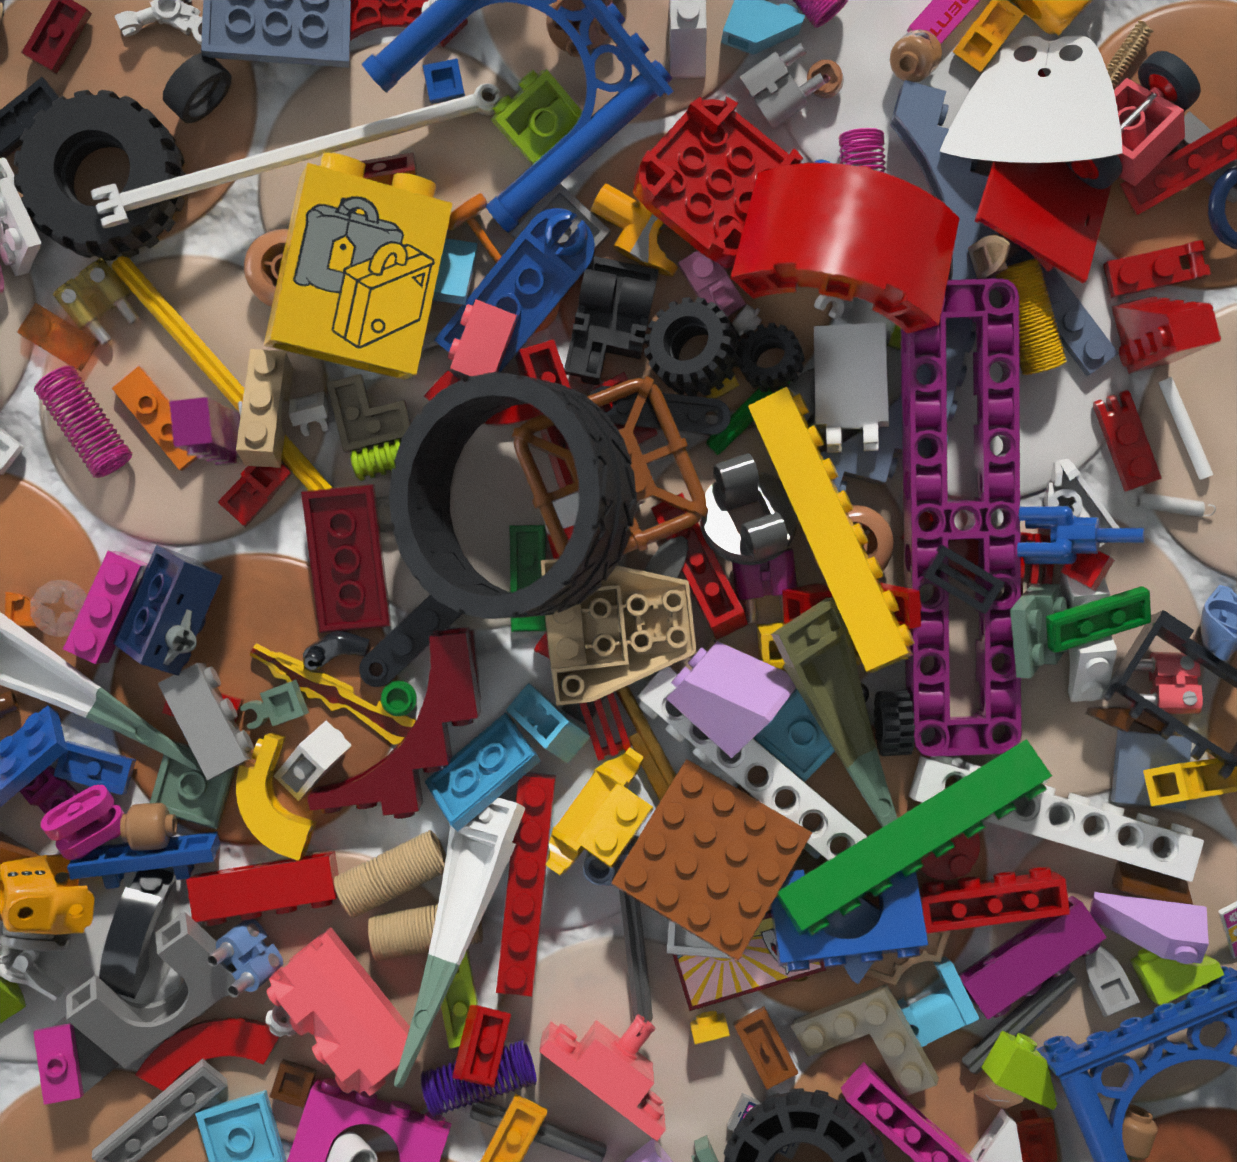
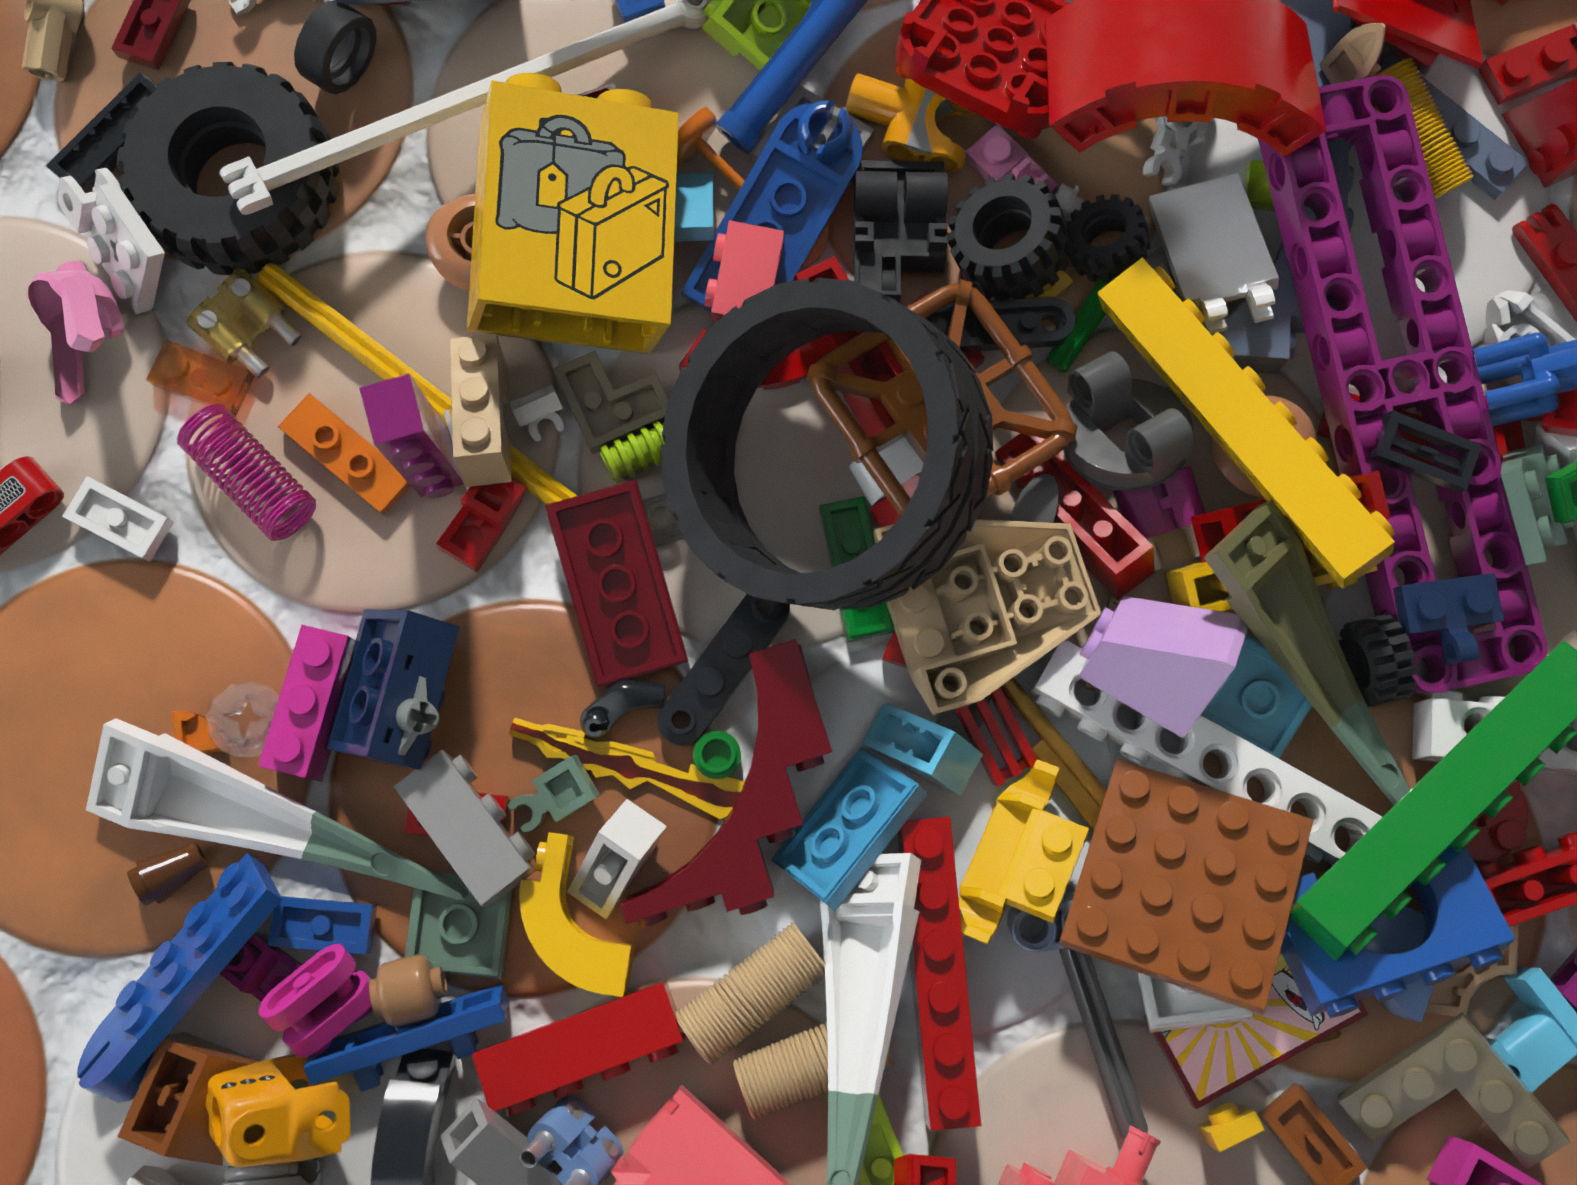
camera: 10 degrees left, 10 degrees down
(951, 698) = (1450, 609): none -> dark blue plate

